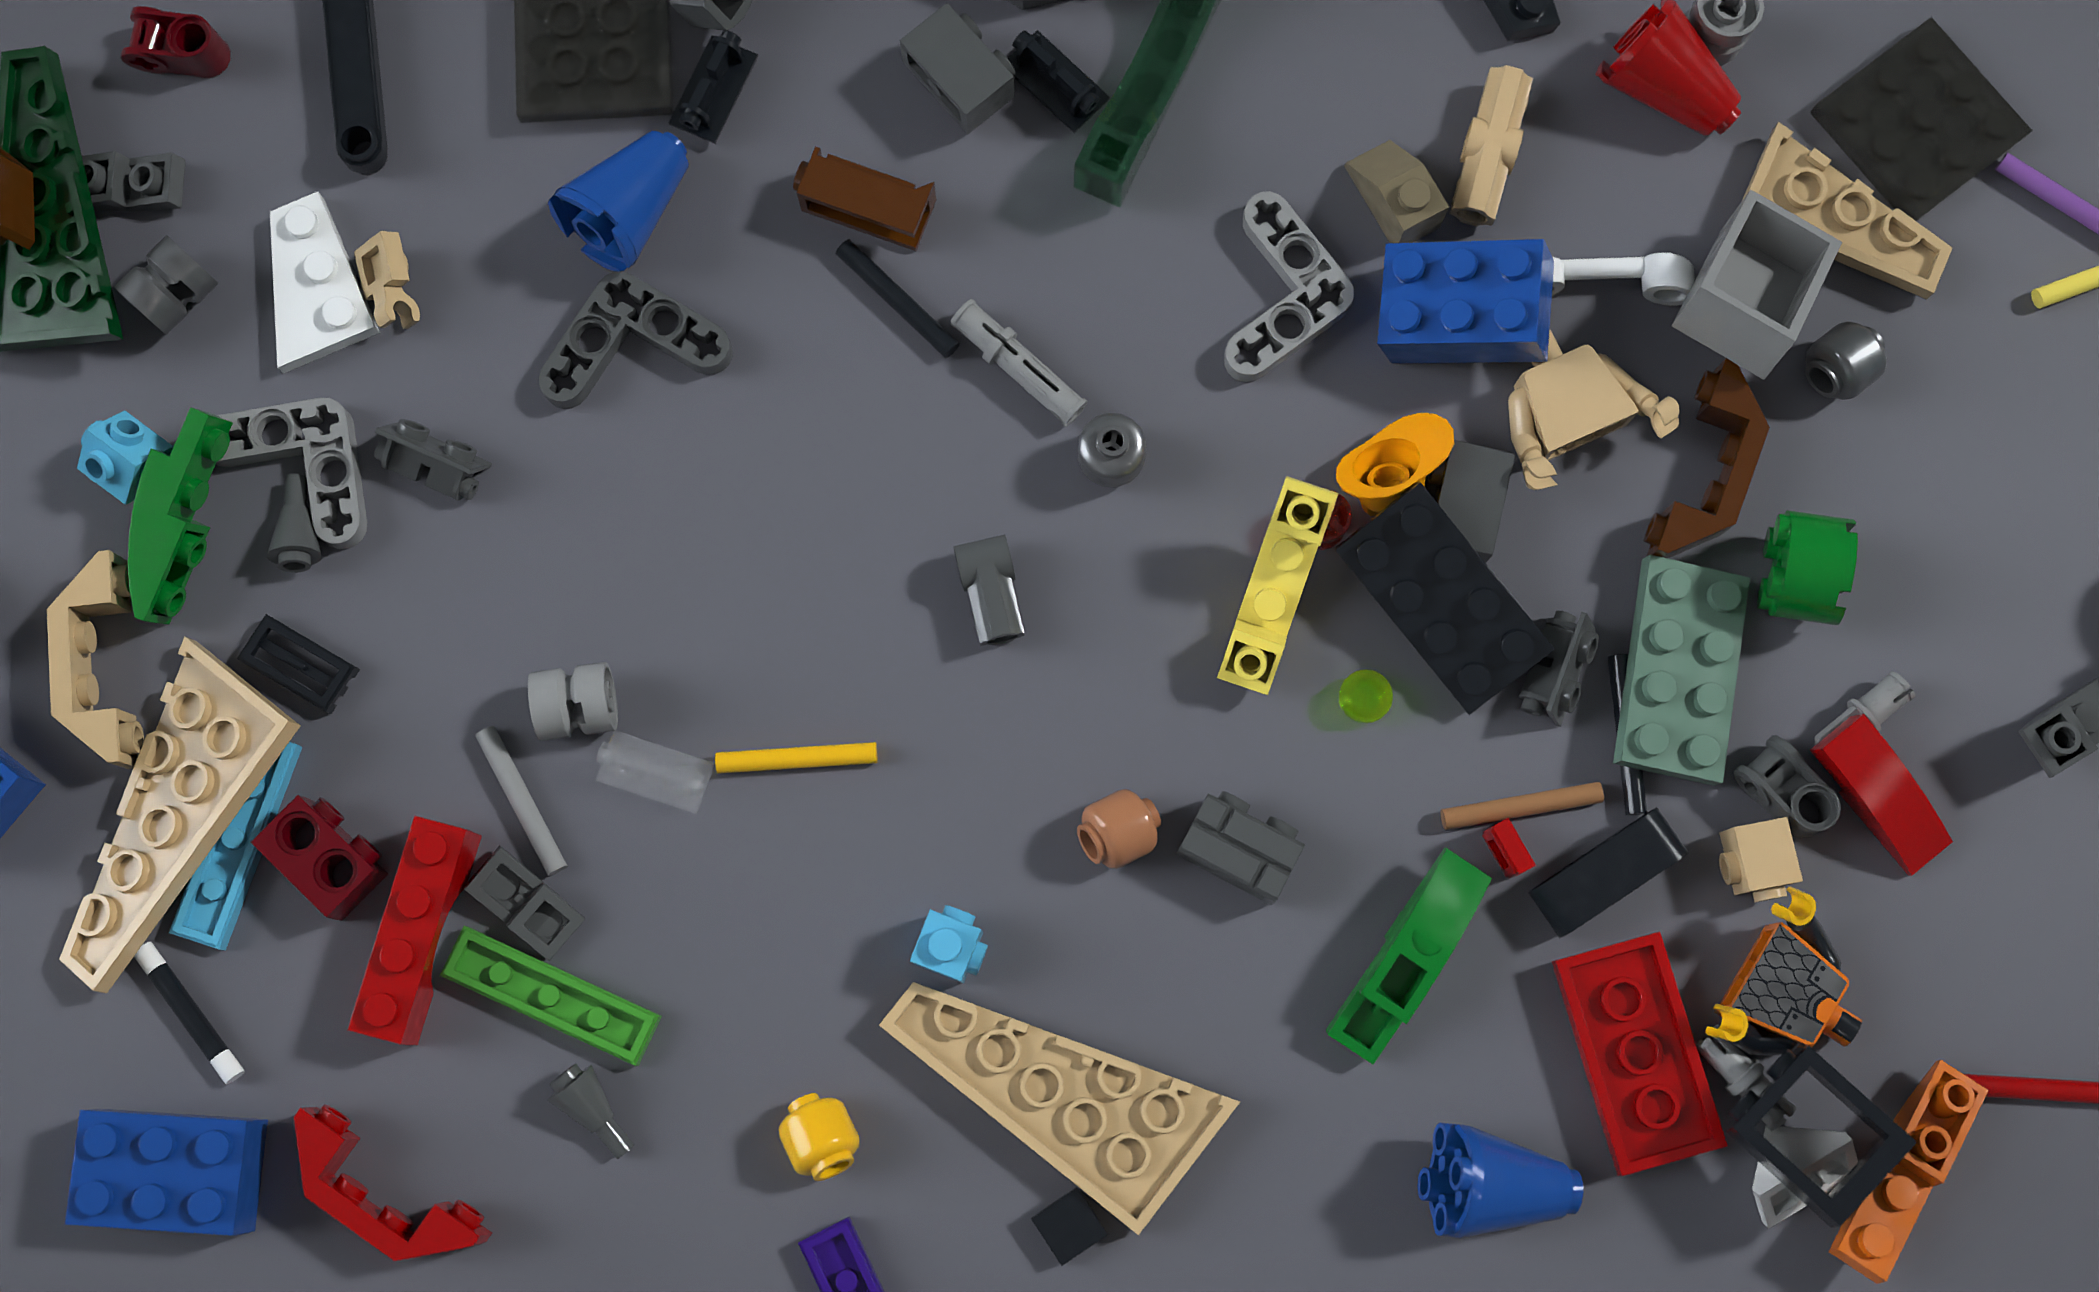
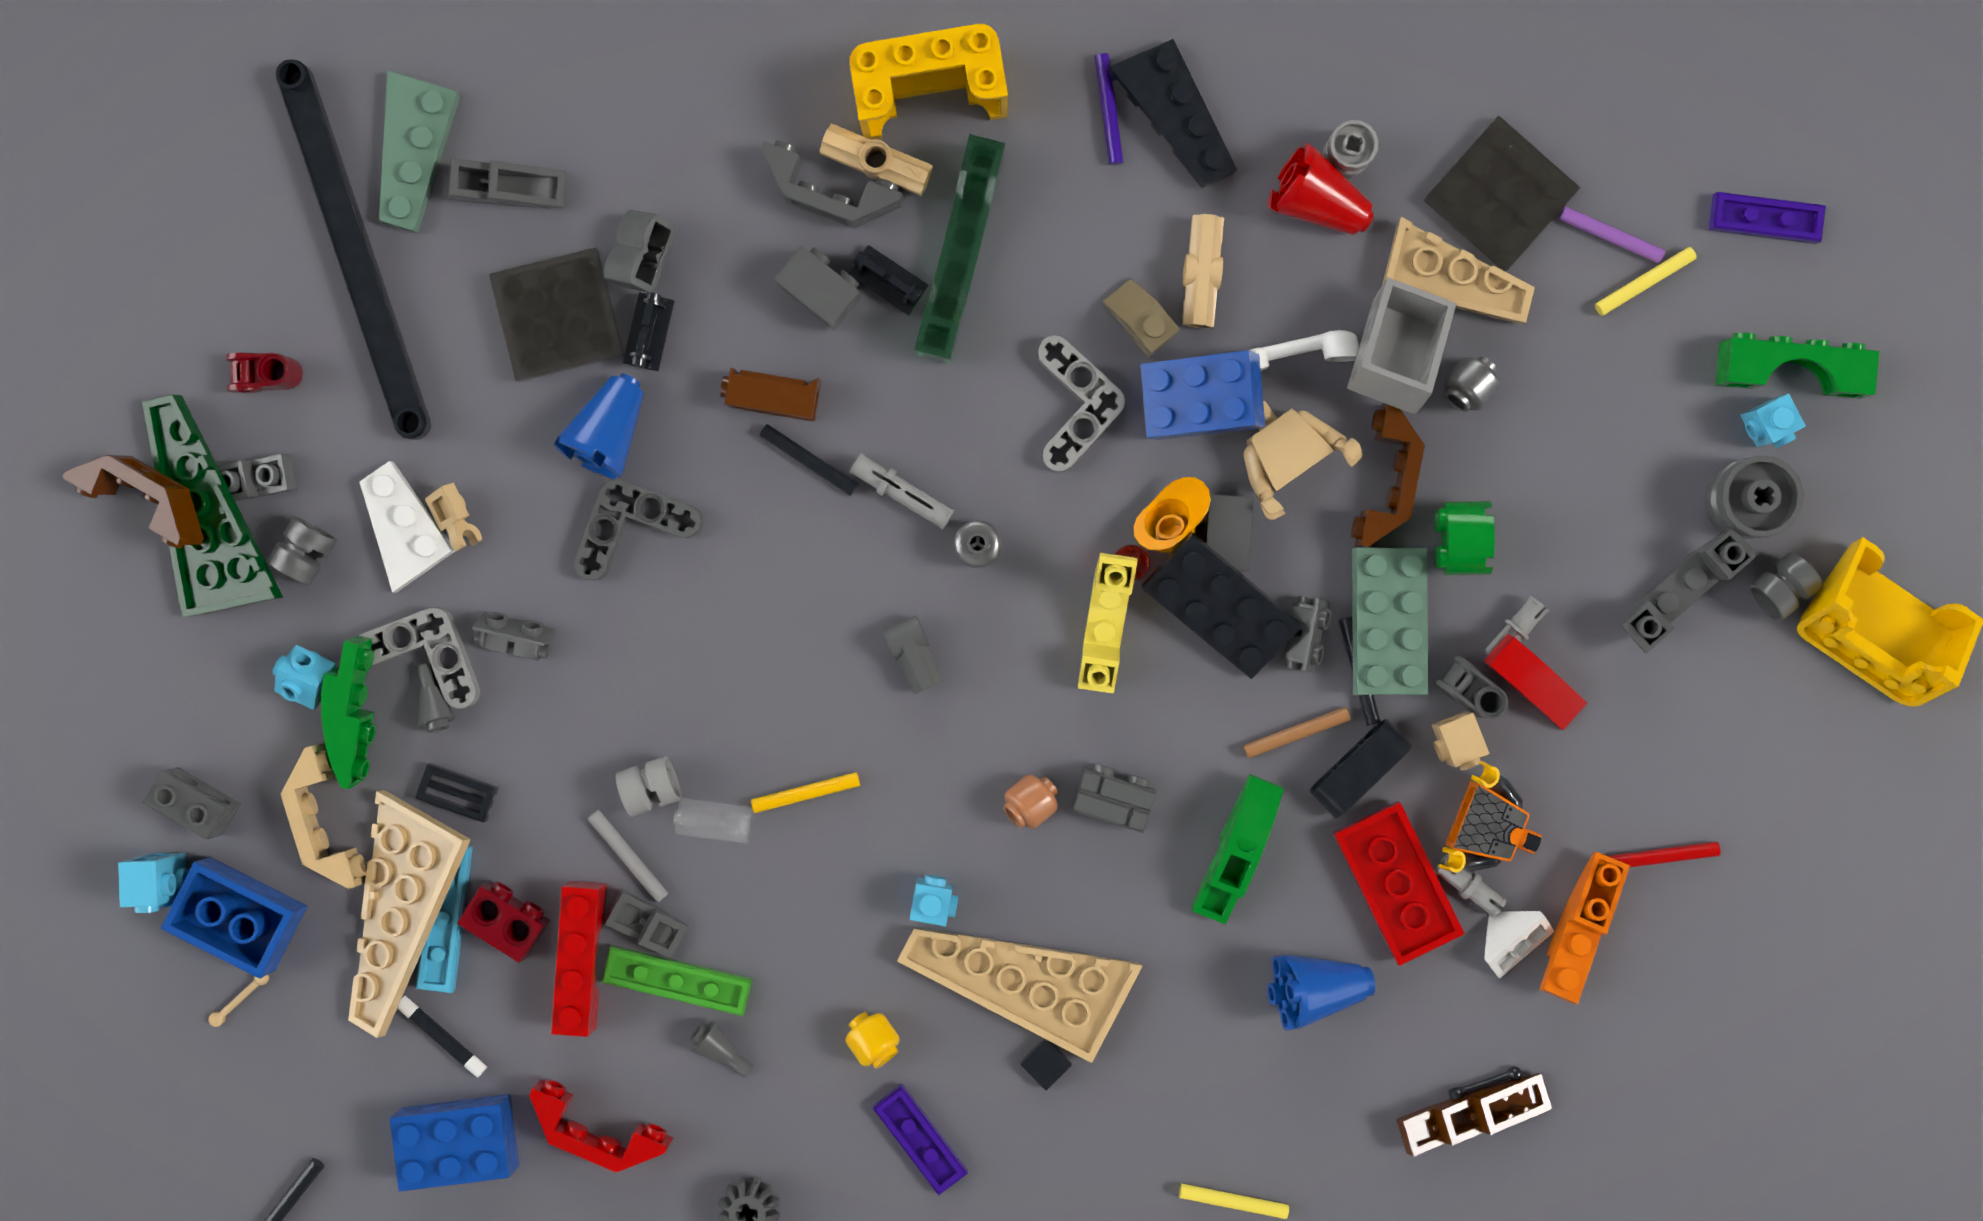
camera: 10 degrees left, 10 degrees up
(1365, 696) = (1179, 678): clear neon green plate -> none
(1508, 849) = (1291, 765): red tile -> none
(1862, 1178) = (1552, 944): black window -> none

